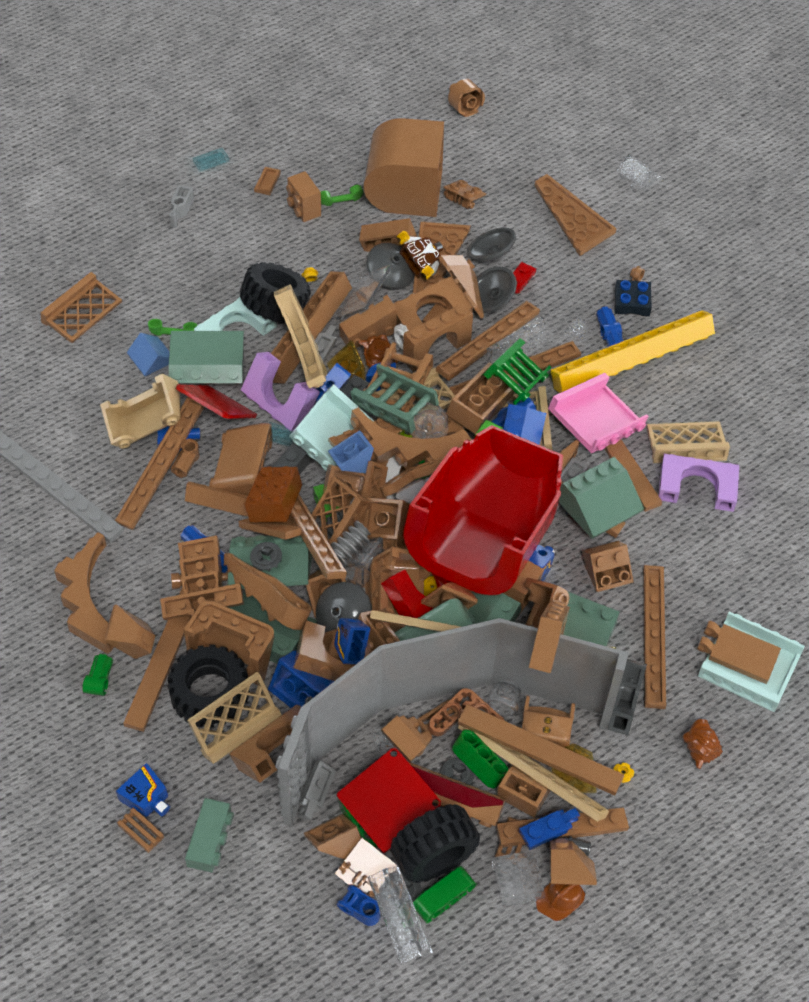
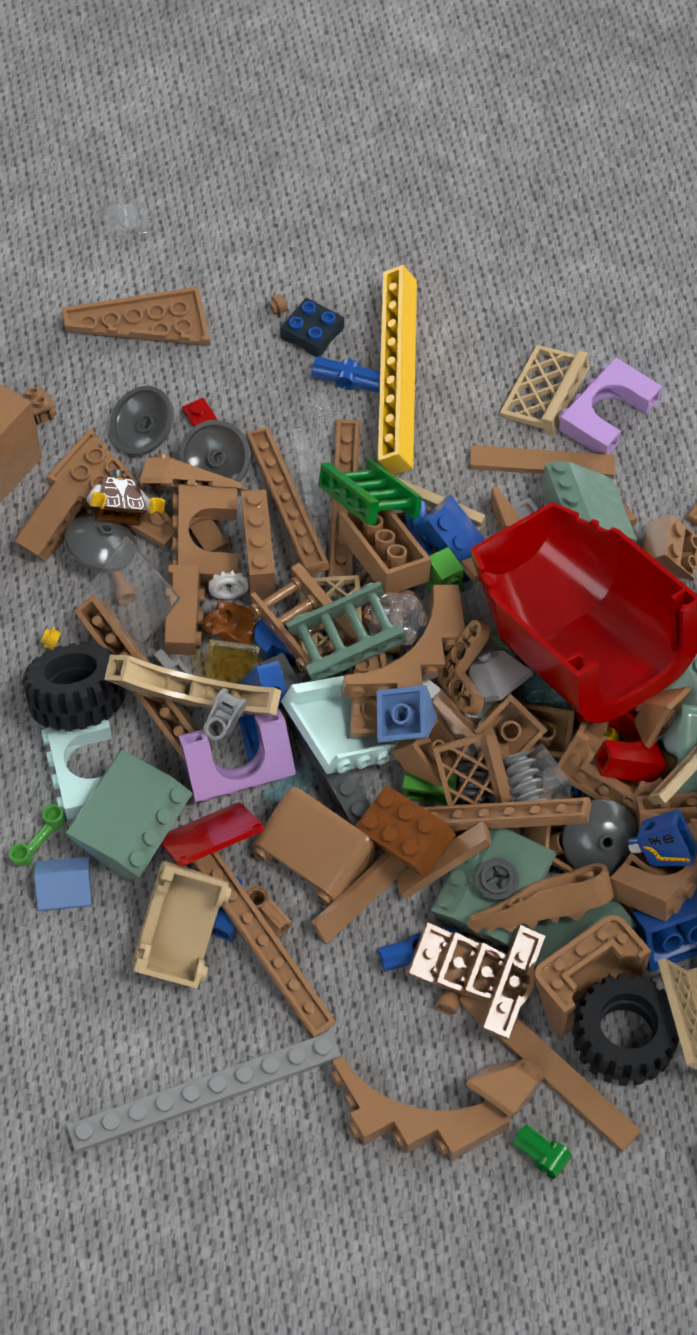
camera: 60 degrees left, 5 degrees up
(292, 363) = (225, 710): none -> light grey piece
(595, 414) = (468, 451): bright pink panel -> none

